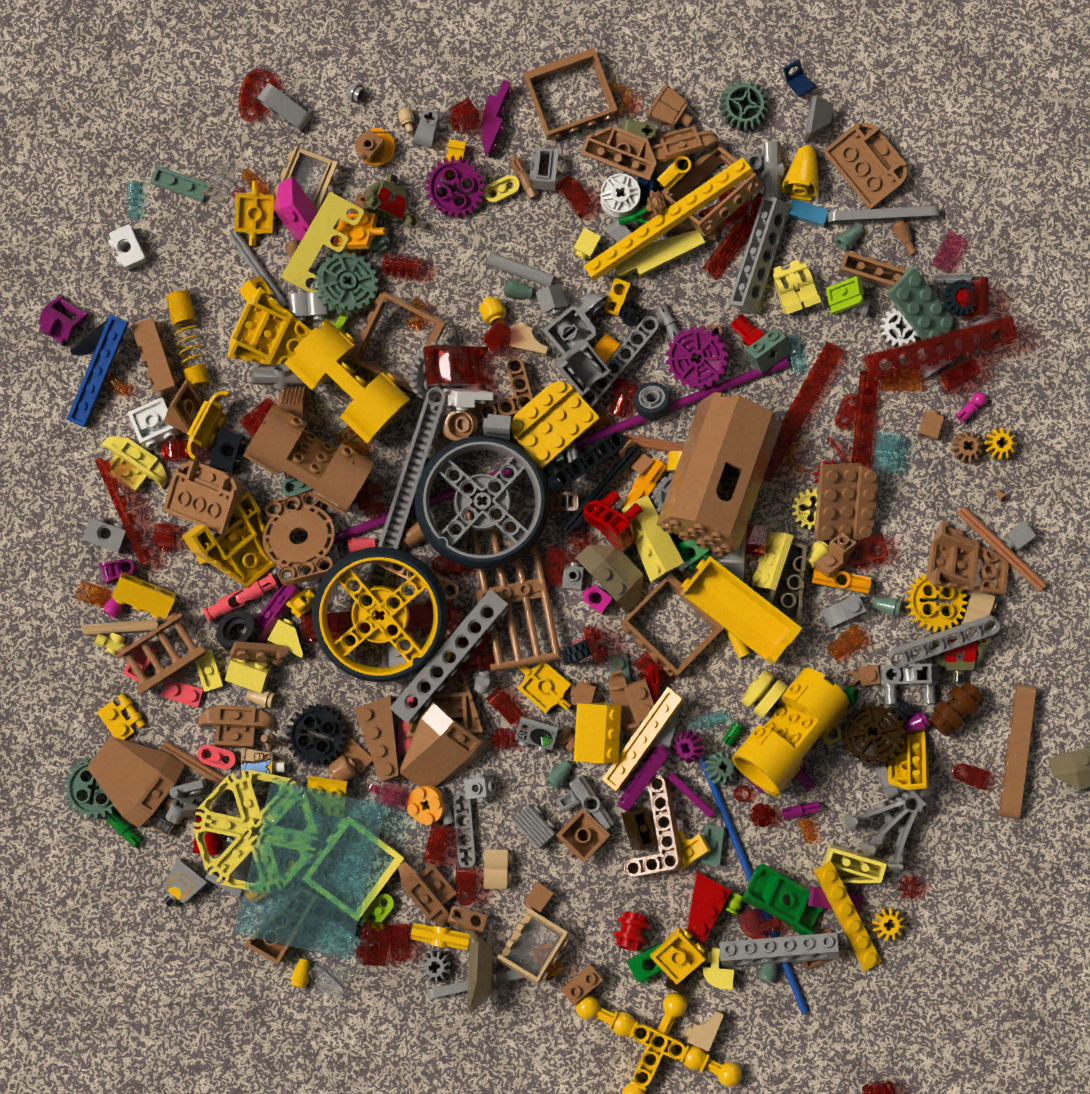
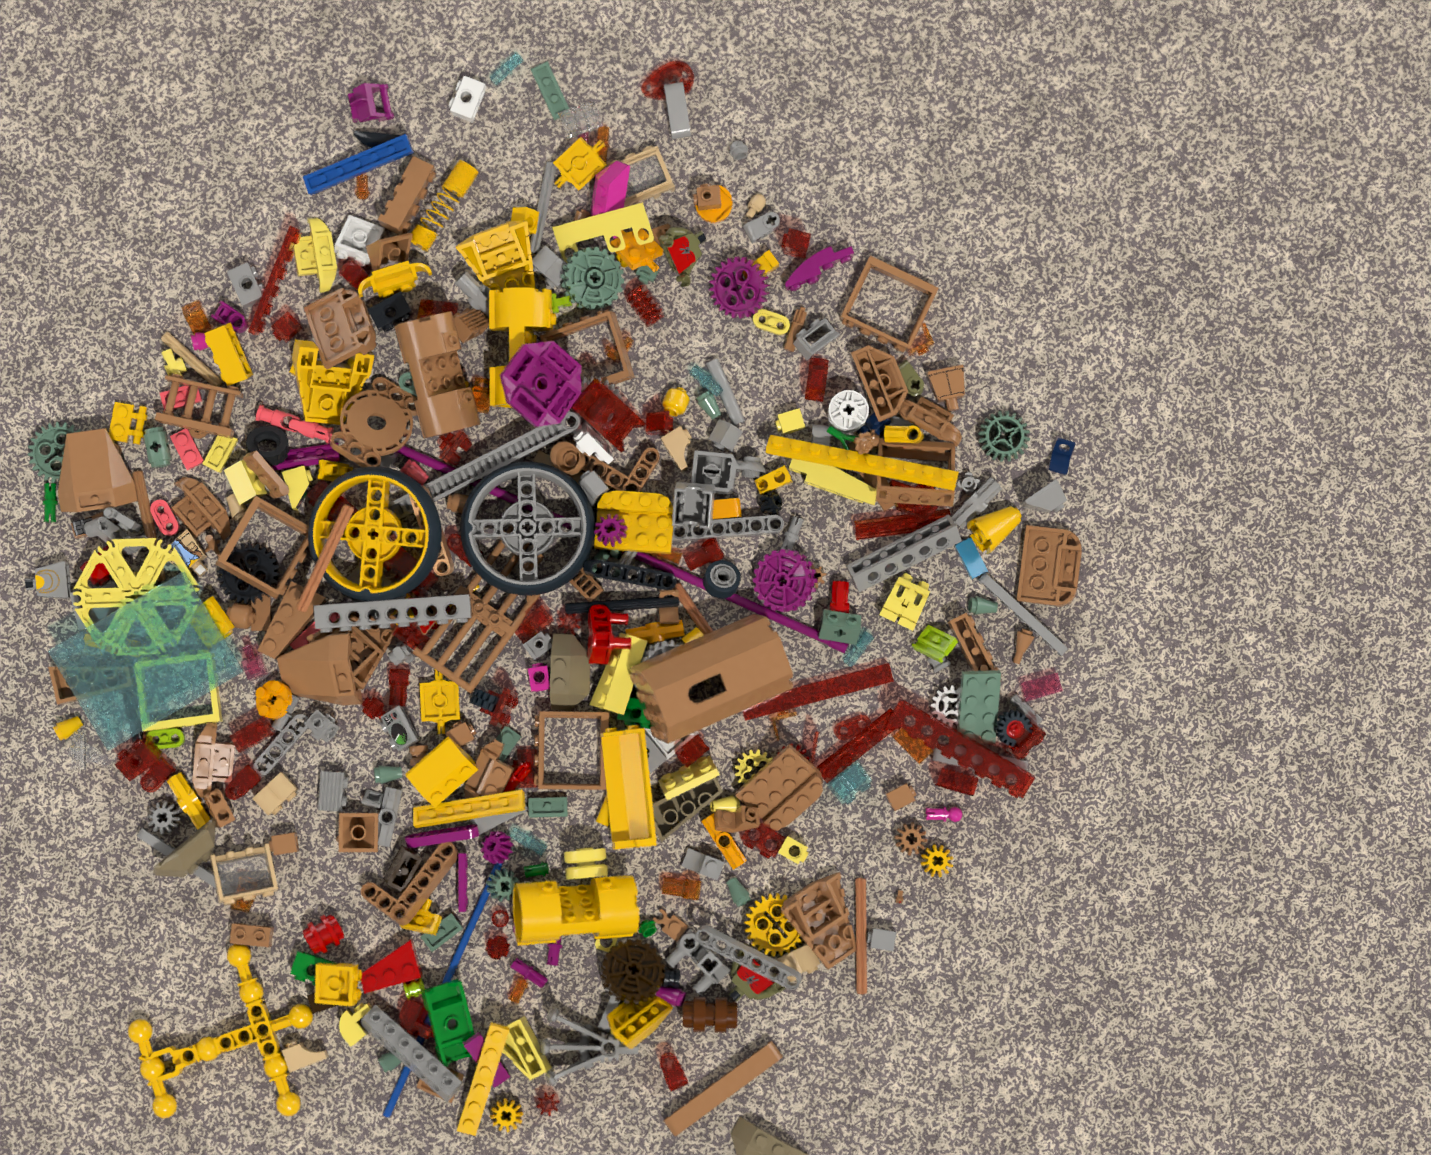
camera: 40 degrees right, 0 degrees up
(171, 715) = (151, 438): none -> sand green piece
(302, 670) = (258, 503): none -> medium nougat window
(363, 666) = (324, 558): none -> nougat axle
(402, 375) = (558, 378): none -> magenta piece
(499, 275) = (706, 380): none -> clear light blue axle
(549, 443) = (613, 536): none -> magenta gear
(695, 682) = (548, 807): none -> sand green plate
(904, 533) = (784, 850): none -> light yellow brick

